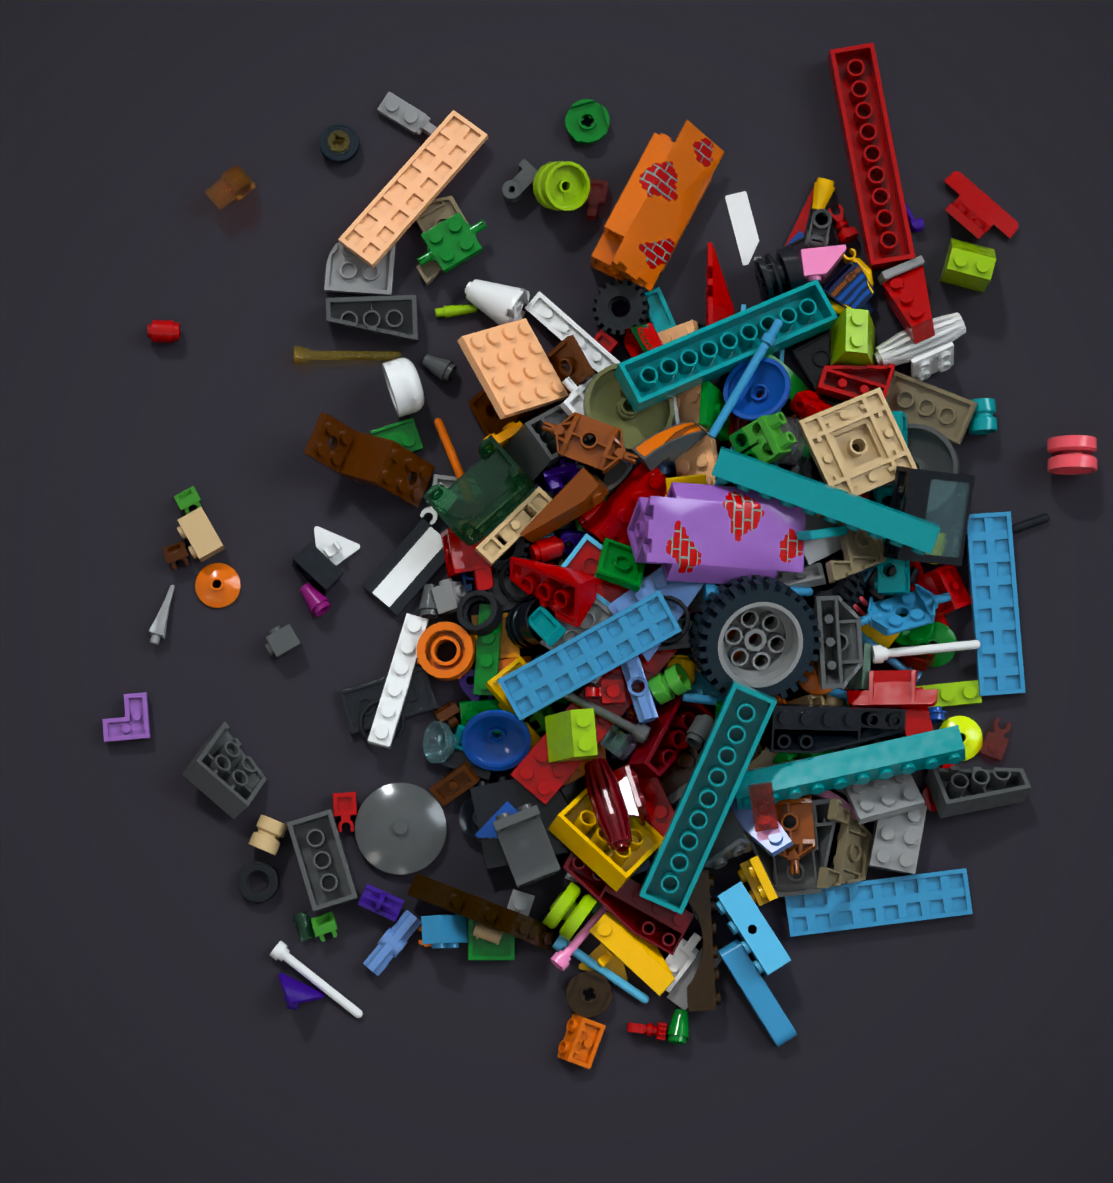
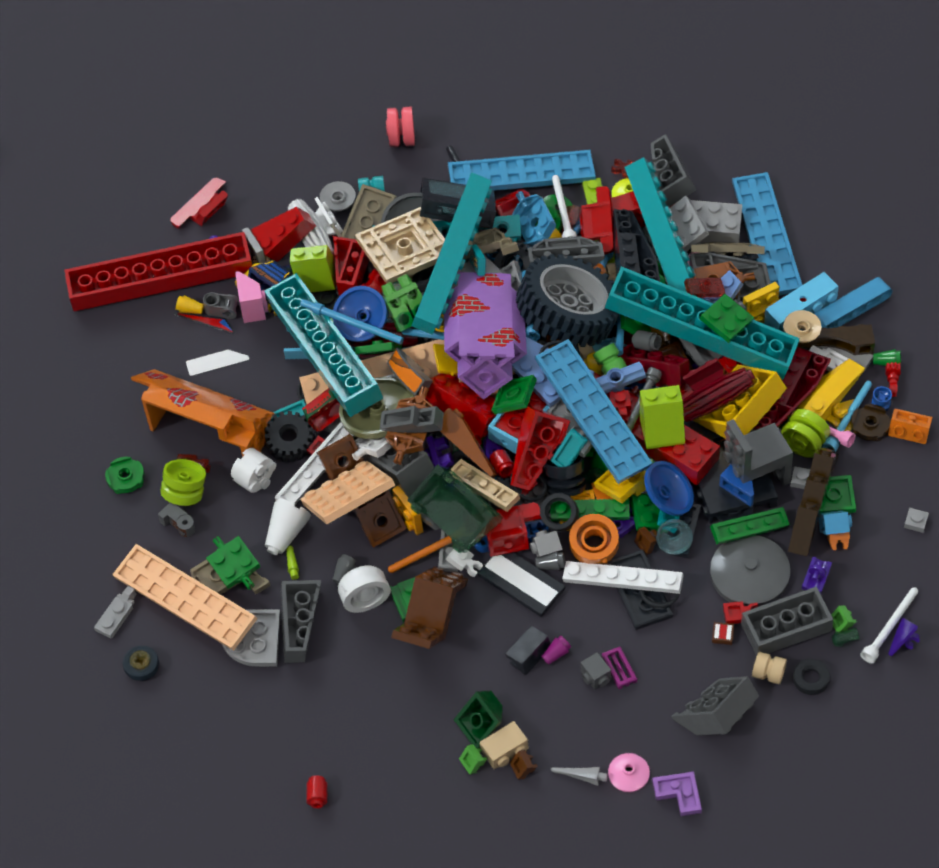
camera: 85 degrees left, 25 degrees down
(164, 680) = (625, 780): none -> bright pink dish
(221, 596) = (551, 740): orange dish -> none
(232, 185) = (182, 743): clear orange brick -> none
(235, 512) = (480, 717): none -> dark green slope
(271, 676) = (626, 682): none -> magenta tile
(303, 354) = (334, 679): clear yellow piece -> none
(322, 788) = (722, 633): none -> tile
(334, 546) = (506, 639): white piece -> none
(392, 942) = (850, 567): medium blue piece -> none
(452, 1030) = (916, 520): none -> light grey plate
(453, 833) = (749, 525): none -> green plate
(454, 783) = (702, 521): reddish brown plate -> none
(487, 933) = (831, 494): tan pin -> none
(572, 266) = (253, 470): none -> white brick
(583, 441) = (412, 420): none -> dark grey slope
(619, 1011) = (882, 397): none -> blue wheel
(703, 825) = (726, 318): none -> green plate
(717, 295) = (274, 371): red wedge -> none
(722, 923) = (803, 320): none -> tan dish
(778, 274) = (258, 324): black wheel -> none
(846, 234) = (222, 288): red piece -> none
(968, 265) = (249, 200): lime slope -> none
(982, 367) = (335, 191): none -> light grey dish

